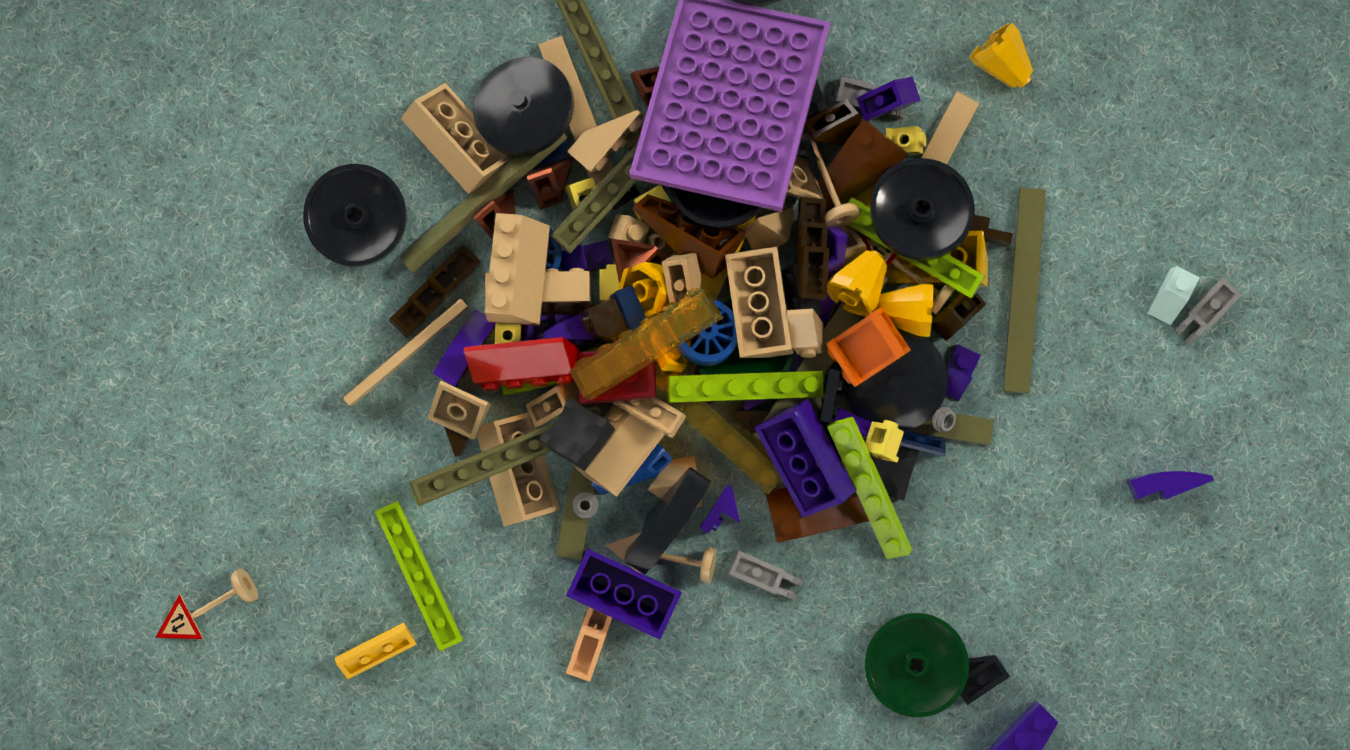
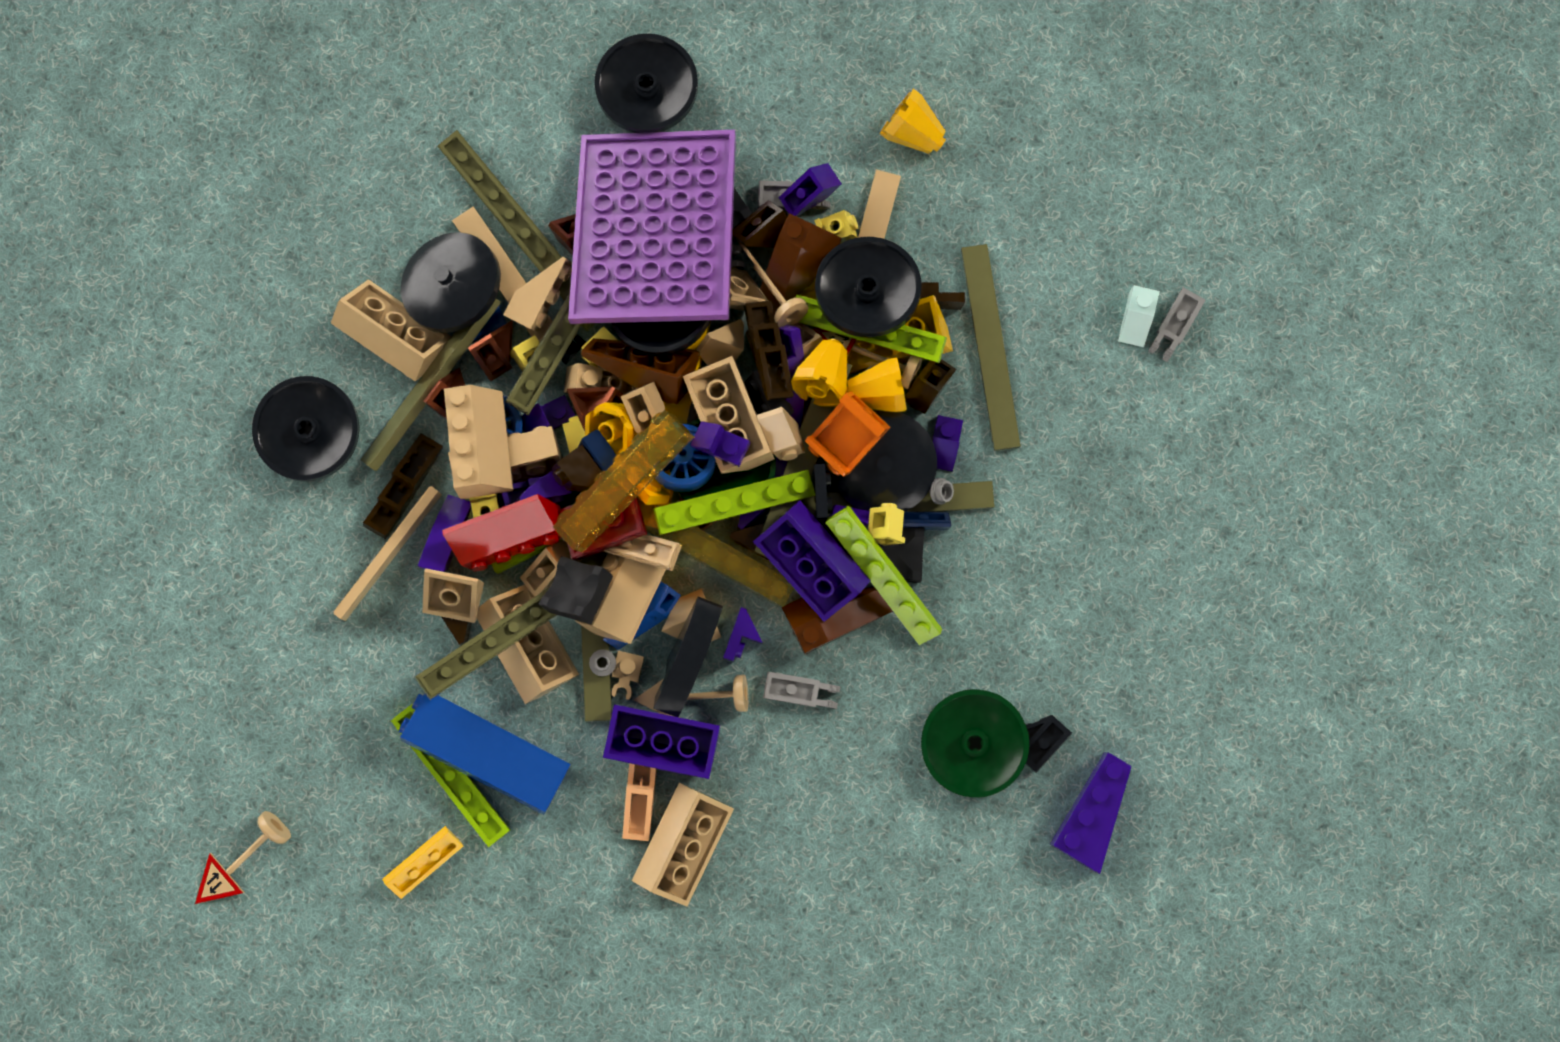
camera: 15 degrees left, 5 degrees down
(456, 563) = (484, 751): none -> blue brick
(606, 517) = (627, 669): none -> tan plate
(620, 692) = (682, 845): none -> tan slope
(745, 329) = (719, 443): none -> dark purple slope
(1166, 483) = (1179, 502): dark purple slope -> none

